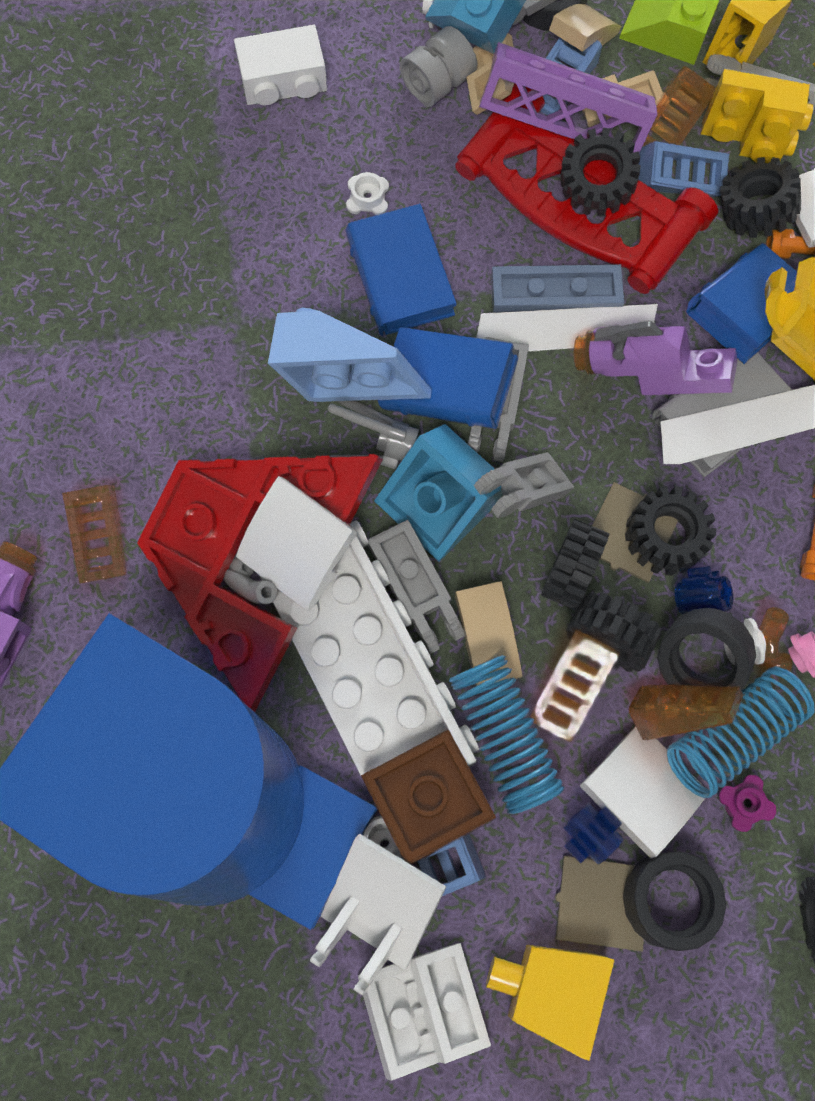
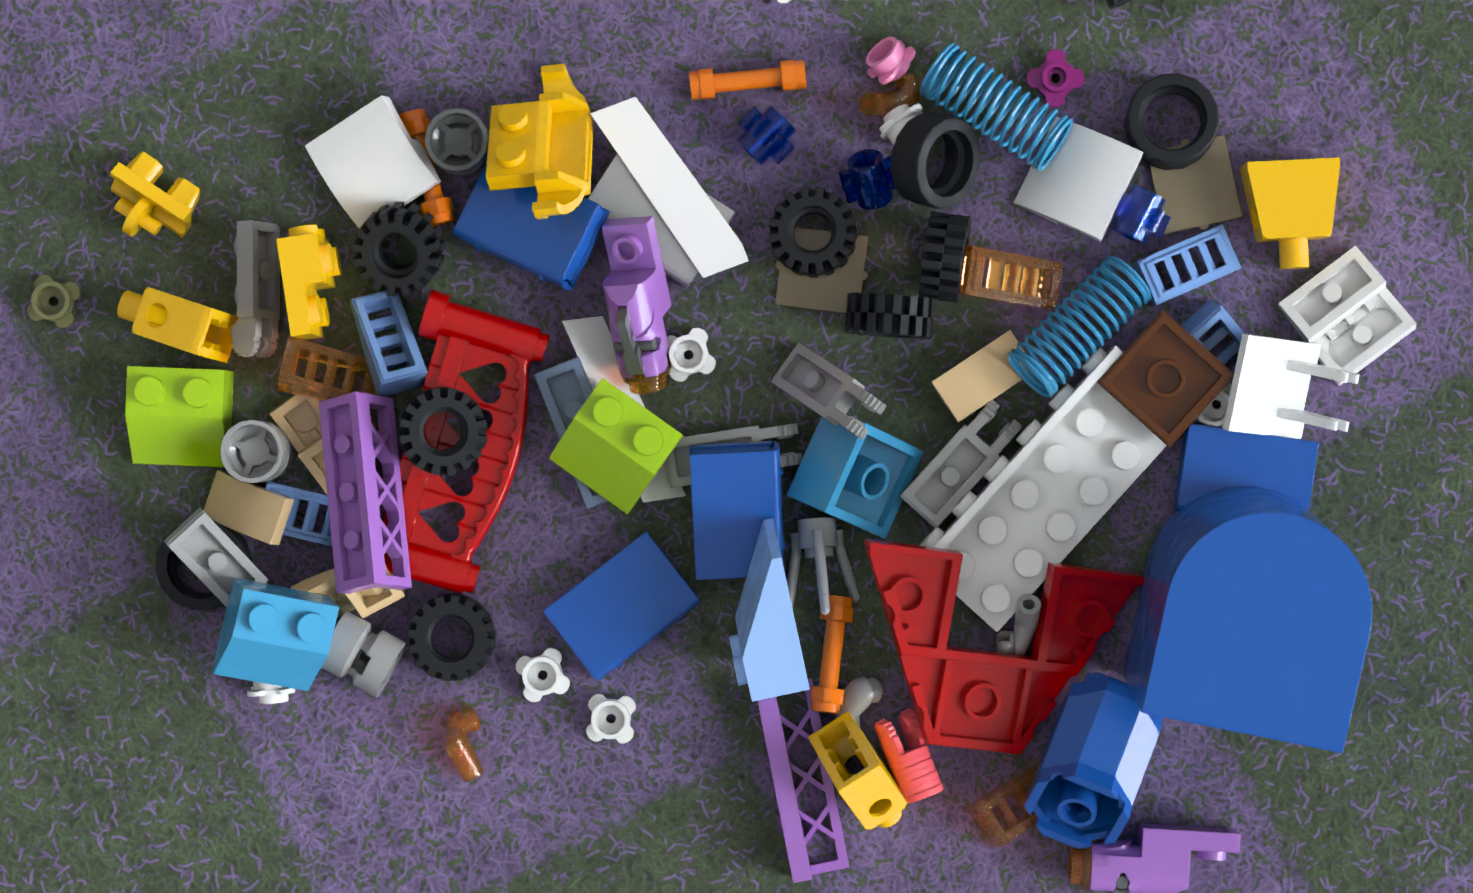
camera: 105 degrees left, 15 degrees up
(86, 577) = (1092, 763): none -> blue brick
(166, 446) = (912, 768): none -> coral hinge
(178, 392) = (870, 792): none -> yellow torso
(191, 339) = (787, 794): none -> medium lavender fence
(242, 420) = (859, 696): none -> light grey arm
(257, 398) = (827, 696): none -> orange bar
(281, 65) = (424, 829): white brick -> none
(295, 543) = (974, 593): white slope -> none
(306, 221) = (620, 708): none -> white plate
(340, 115) = (457, 742): none -> clear orange arm
(425, 116) = (422, 645): none -> black tyre
(517, 823) = (1147, 271): none -> medium blue slope
(543, 300) = (615, 446): none -> lime slope
(597, 383) = (701, 360): none -> white plate
(629, 42) = (256, 451): none -> light grey wheel
(682, 709) = (996, 170): clear orange slope -> none
(771, 519) = (766, 135): none -> clear blue gear

